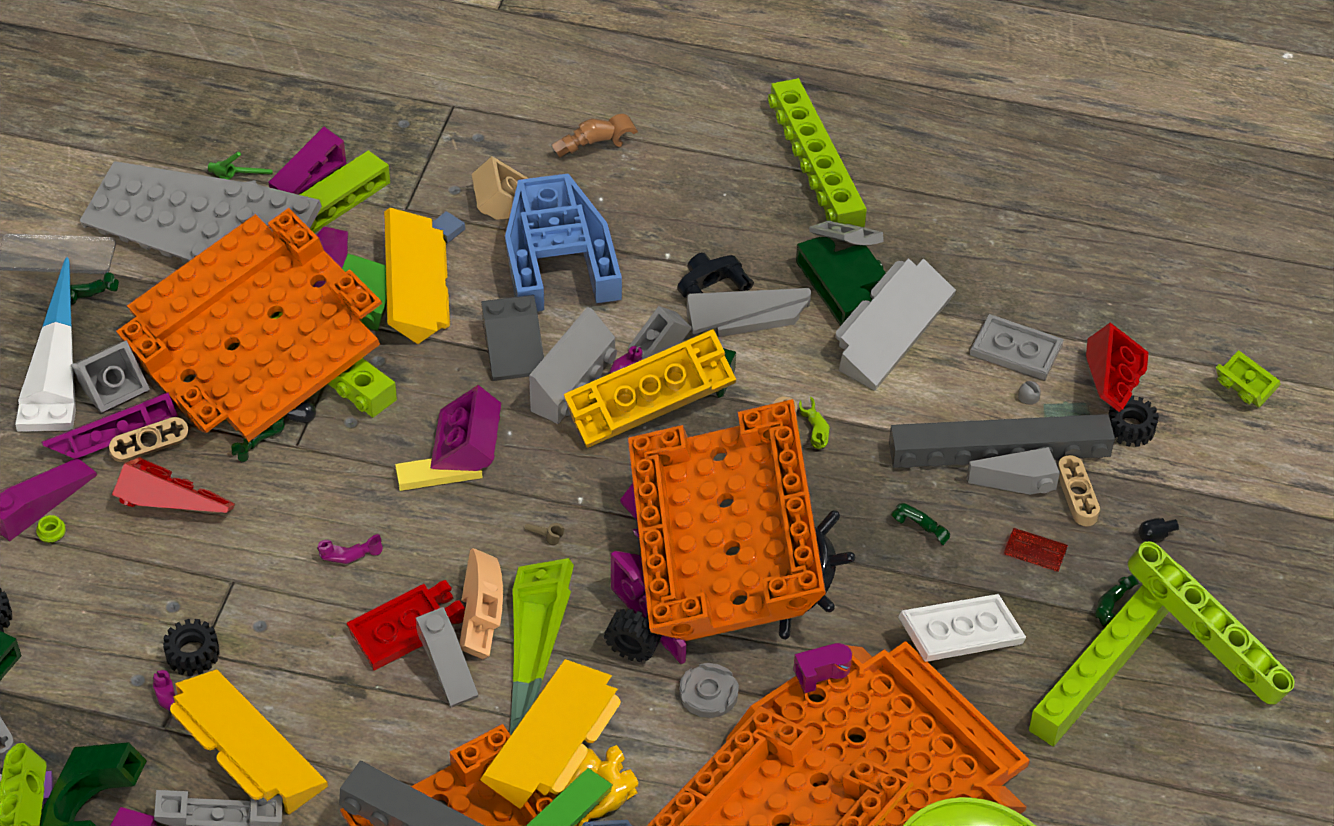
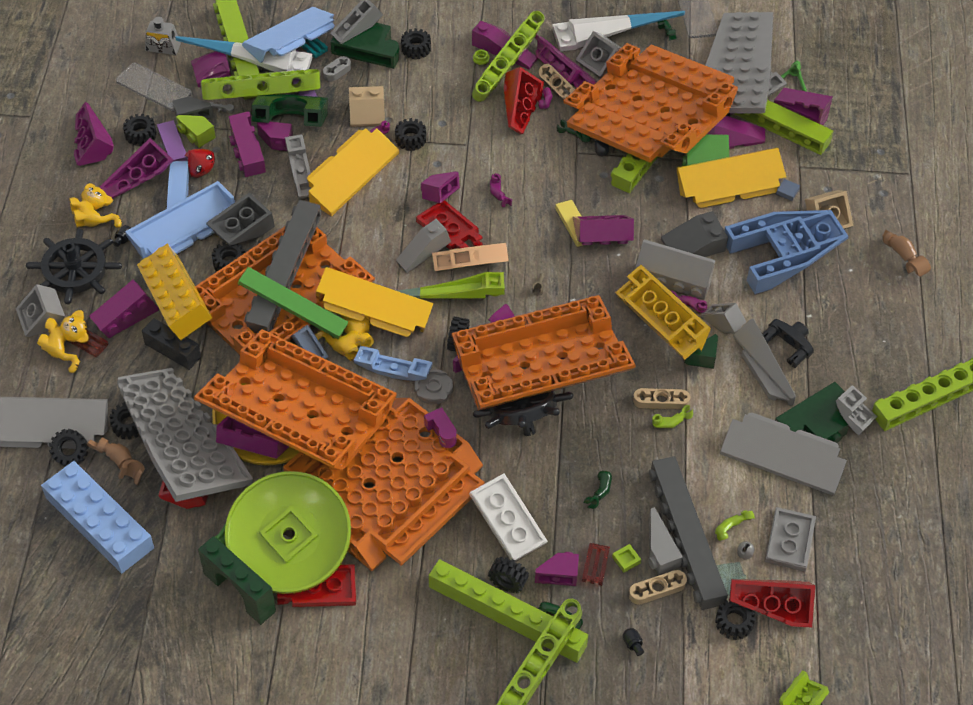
camera: 80 degrees right, 5 degrees up
(78, 484) = (508, 56): none -> lime beam
(108, 698) = (366, 106): none -> tan slope
(177, 457) = (547, 99): none -> magenta arm
(325, 621) = (440, 186): none -> magenta slope
(667, 730) = (392, 367): none -> light blue slope
(990, 401) = (731, 522): none -> lime arm
(1034, 512) = (626, 558): none -> lime plate
(1046, 584) = (559, 570): none -> magenta slope
(1058, 638) = (508, 574): none -> black tyre

